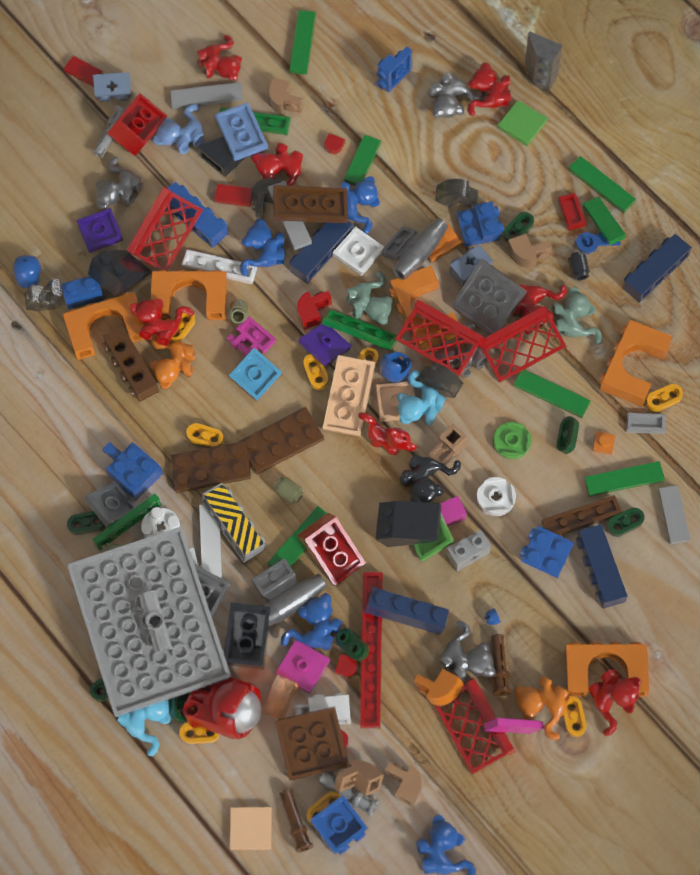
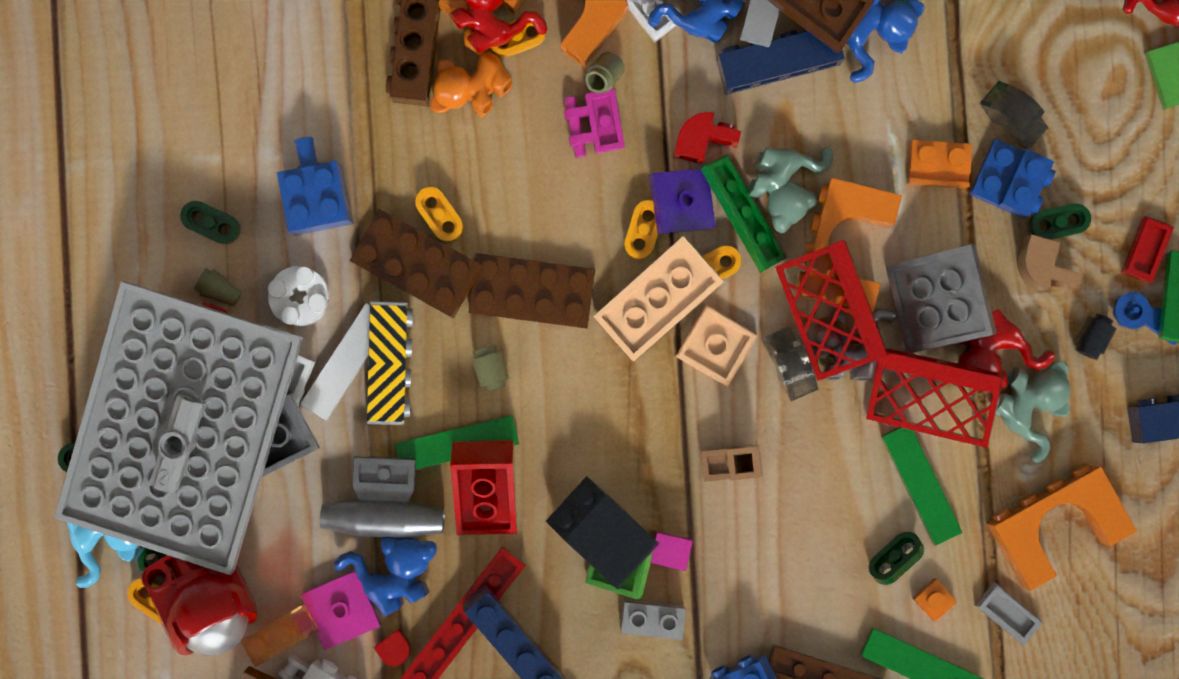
camera: 35 degrees right, 20 degrees up
(109, 503) = (253, 223): dark grey plate -> none
(126, 521) = (256, 260): green tile -> none
(247, 636) = (292, 531): black slope -> none
(255, 374) = (562, 178): dark azure plate -> none
(350, 643) = (420, 630): dark green plate -> none
(358, 251) = (824, 99): white plate -> none
(391, 439) = (669, 403): red animal -> none
(394, 368) = (747, 303): blue helmet -> none
(412, 408) = (725, 376): medium azure animal -> none
(413, 247) = (899, 151): flat silver plate -> none
(423, 487) = (658, 496): black animal -> none
(462, 267) = (937, 238): sand blue brick -> none
(489, 505) = (736, 554): white plate -> none
(512, 440) = (821, 508): bright green tile -> none
(663, 397) = (1058, 599): light orange plate -> none

